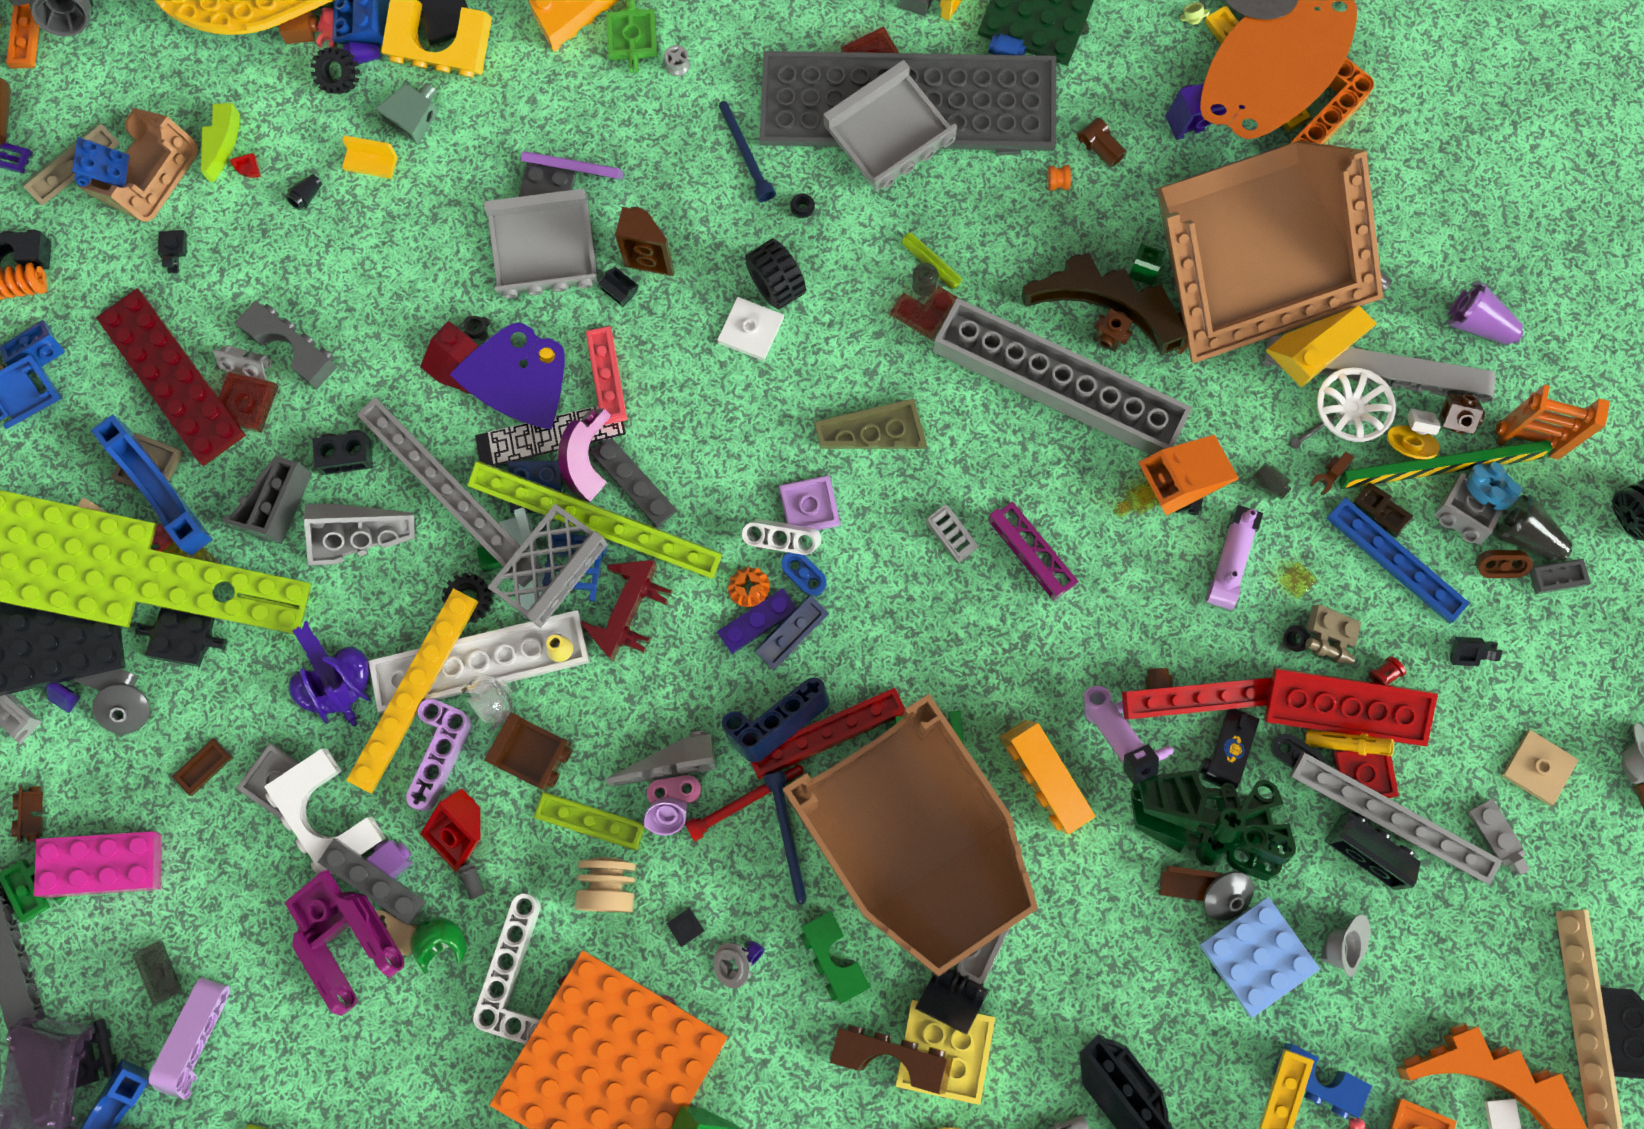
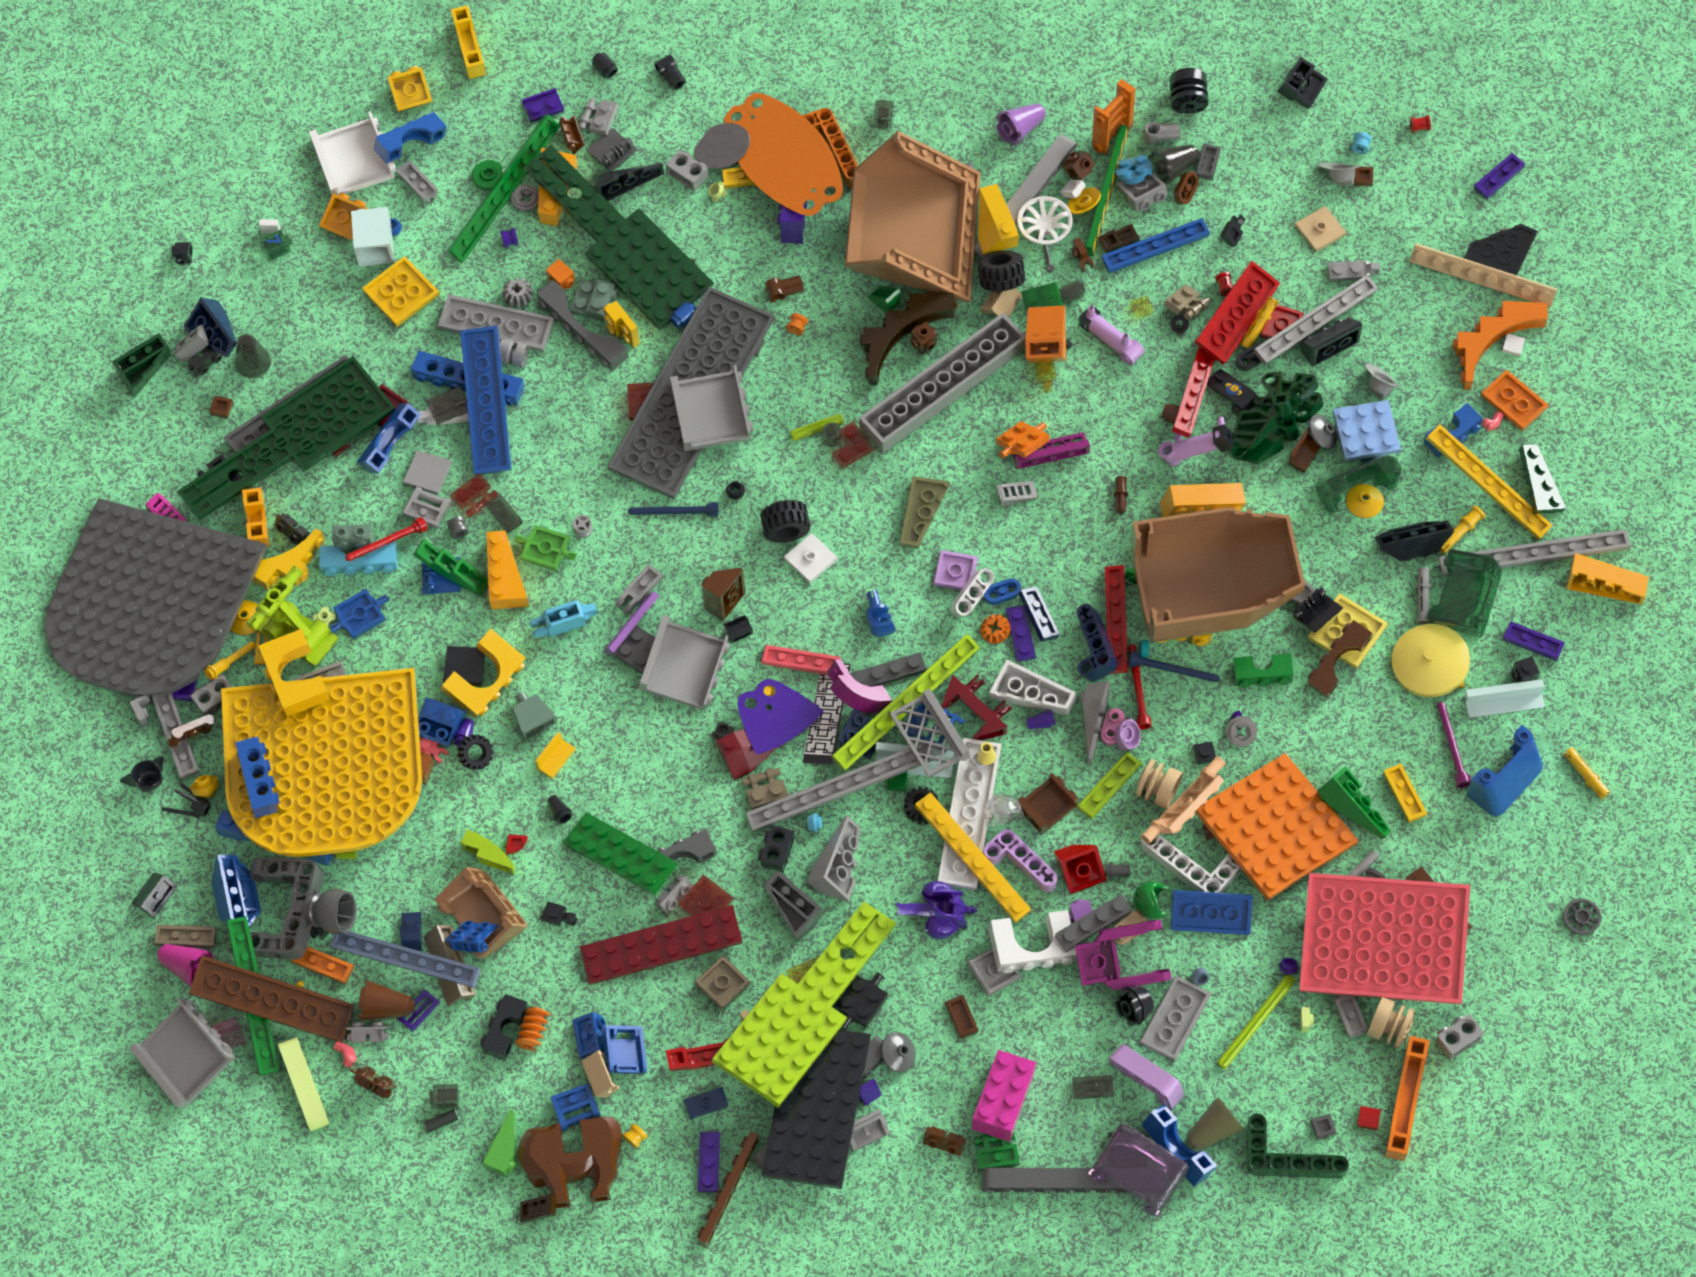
camera: 65 degrees left, 10 degrees down
(39, 472) = (692, 1058): none -> red slope
(48, 114) = (406, 958): none -> sand blue plate
(94, 107) = (411, 930): none -> dark blue slope
(162, 496) = (717, 981): blue arch -> none
(262, 280) = (620, 853): none -> green plate
(282, 983) = (1134, 1004): none -> black cone
(293, 1042) = (1175, 1018): none -> light grey tile
(362, 1052) = (1200, 971): none -> sand blue hinge
(394, 481) = (814, 822): none -> medium azure plate
(415, 412) = (767, 793): none -> dark tan plate
(453, 1031) = (1211, 912): none -> blue tile
(545, 90) = (563, 618): none -> medium azure hinge
(588, 934) = (1187, 803): none -> light nougat plate
(624, 156) = (640, 588): none -> light grey hinge
(644, 698) = (1041, 720): none -> dark purple cone
(676, 667) = (1031, 690): none -> white wedge
(701, 436) = (876, 615): none -> blue piece
(1010, 665) = (1120, 494): none -> reddish brown axle
(1026, 508) = (1022, 439): none -> orange plate
(1141, 995) = (1361, 507): none -> yellow dish
(1153, 941) = (1381, 470): none -> clear green windscreen
(1216, 403) = (1001, 302): none -> tan panel
(1247, 451) = (1042, 296): none -> green plate
(1252, 381) = (1001, 271): none -> black tyre
(1404, 152) = (883, 114): none -> clear smoke brick
(1571, 499) = (1161, 132): none -> light grey piece

